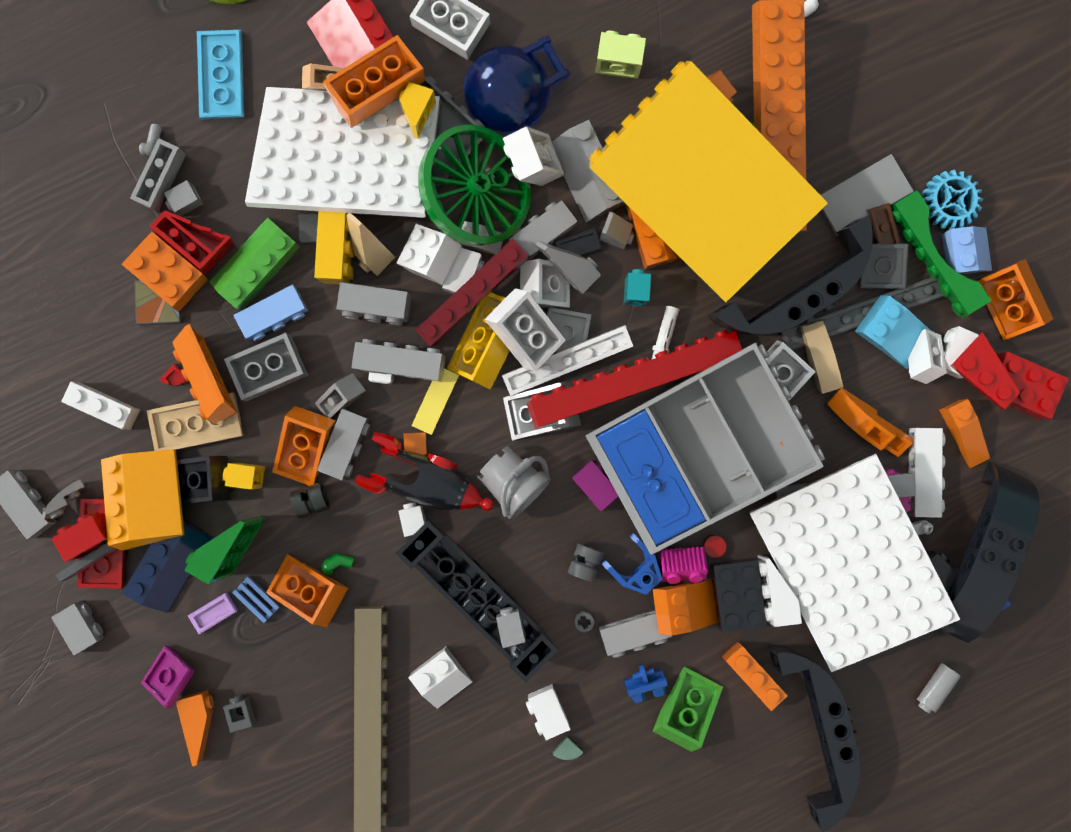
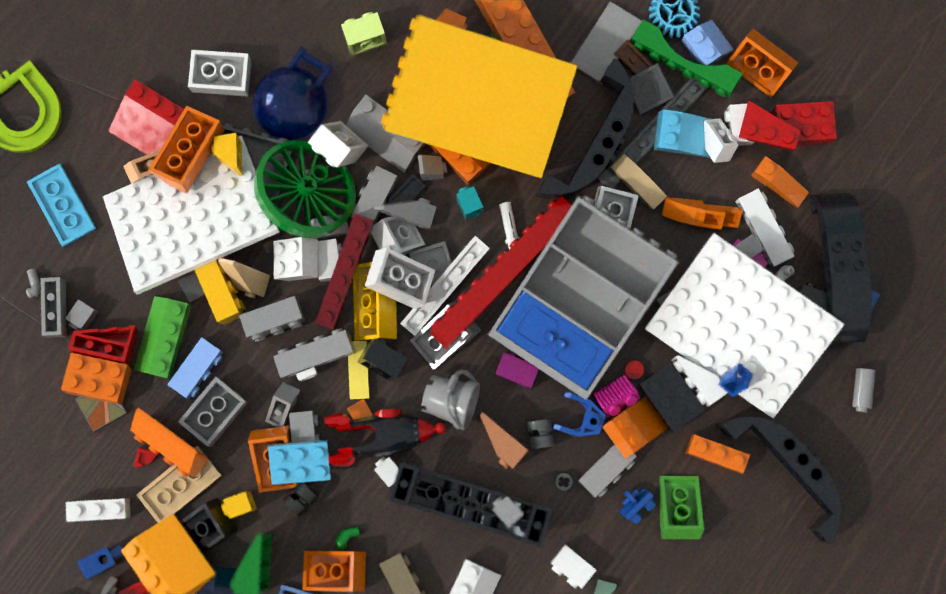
camera: 20 degrees left, 5 degrees down
(69, 459) = (92, 566): none -> blue torso
(326, 464) = (299, 462): none -> medium azure plate
(464, 403) = (383, 359): none -> black brick
(544, 560) = (505, 446): none -> nougat slope
(811, 617) = (735, 385): none -> blue window

